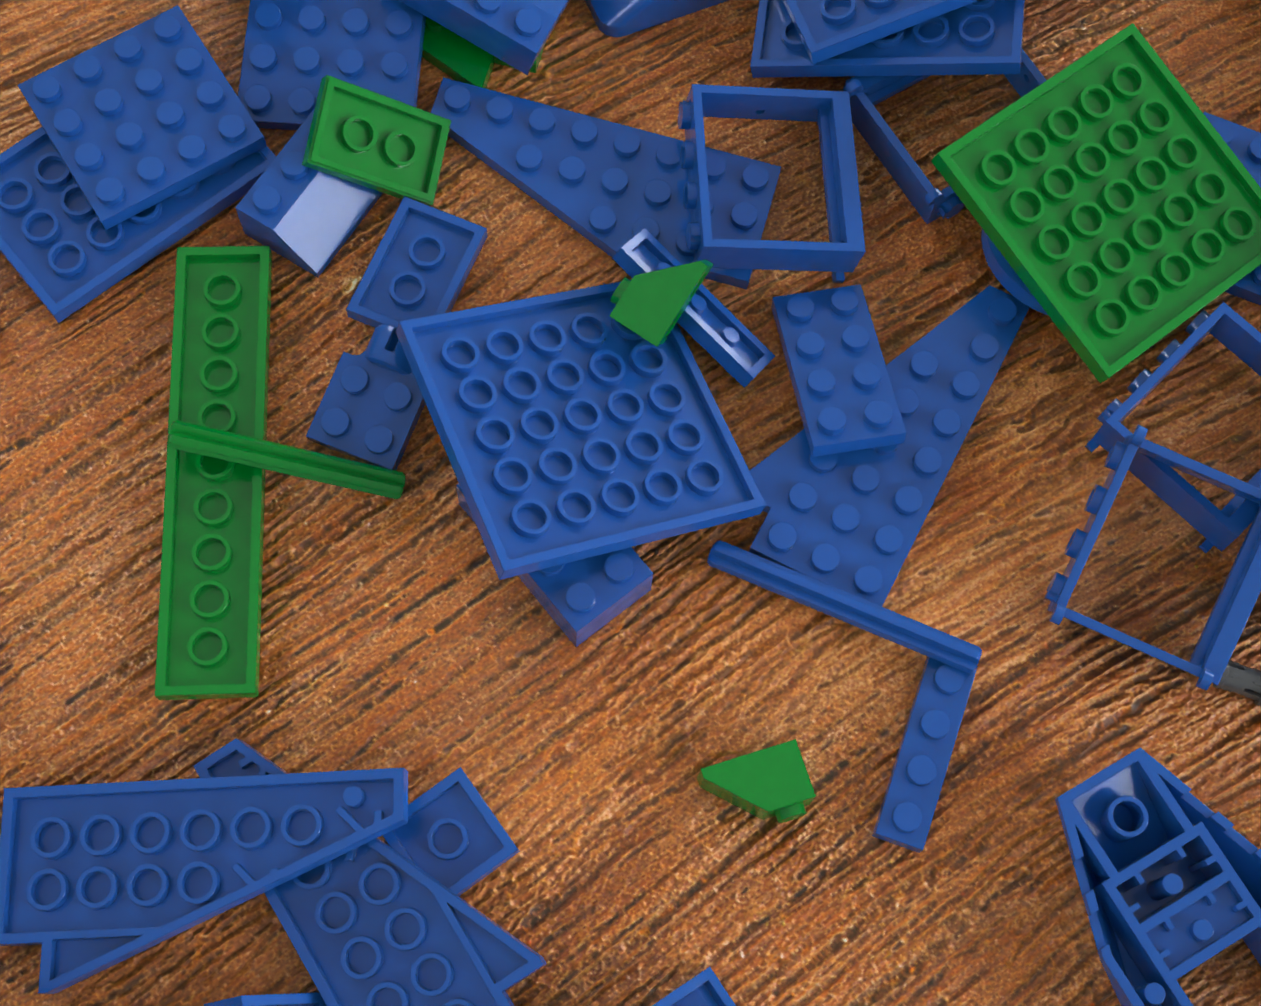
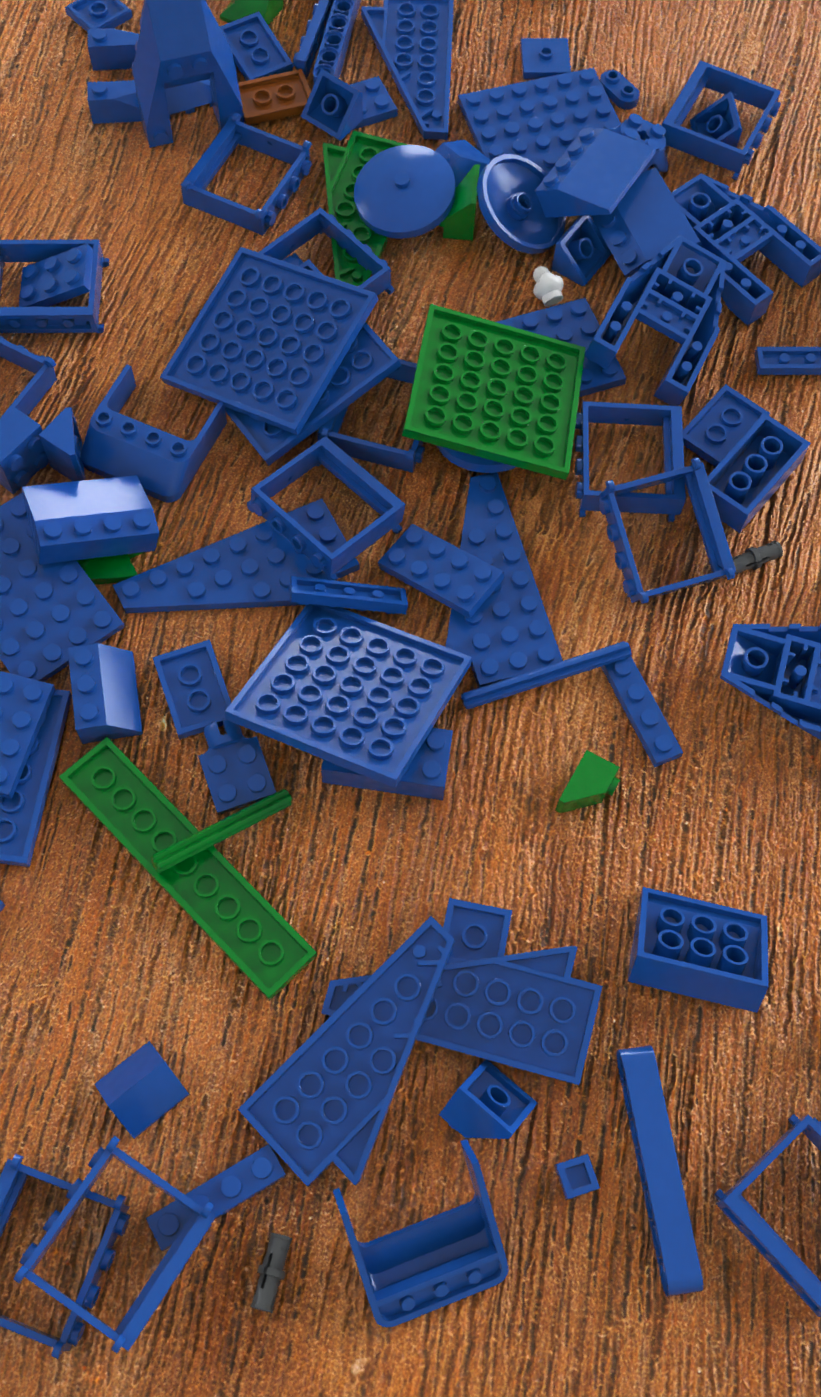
camera: 40 degrees left, 5 degrees down
(376, 141) = (115, 640): green tile -> none
(657, 299) = (334, 600): green slope -> none

